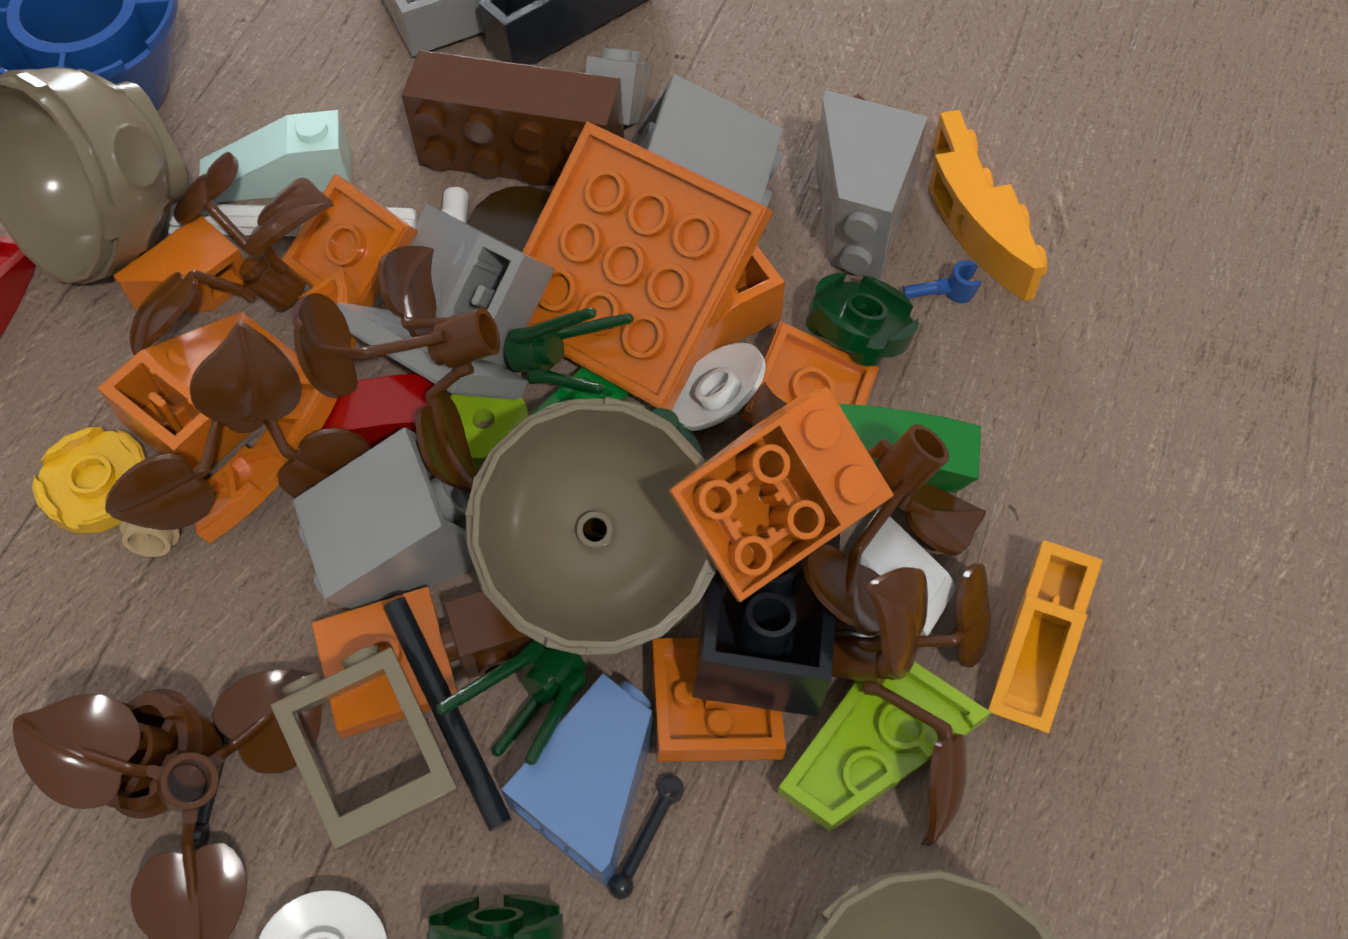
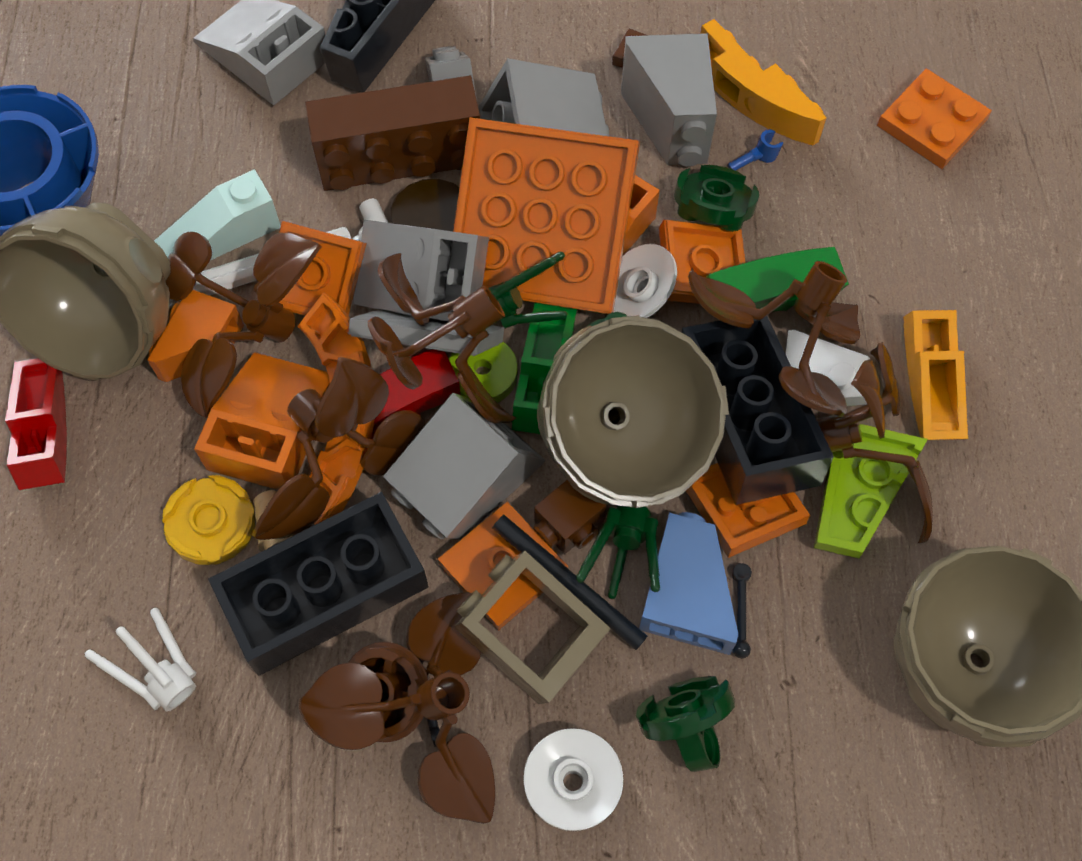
camera: 25 degrees left, 5 degrees up
(154, 596) = (318, 583): none -> black brick
(780, 491) = (751, 337): orange slope -> none
(1198, 318) = (934, 118): none -> orange plate

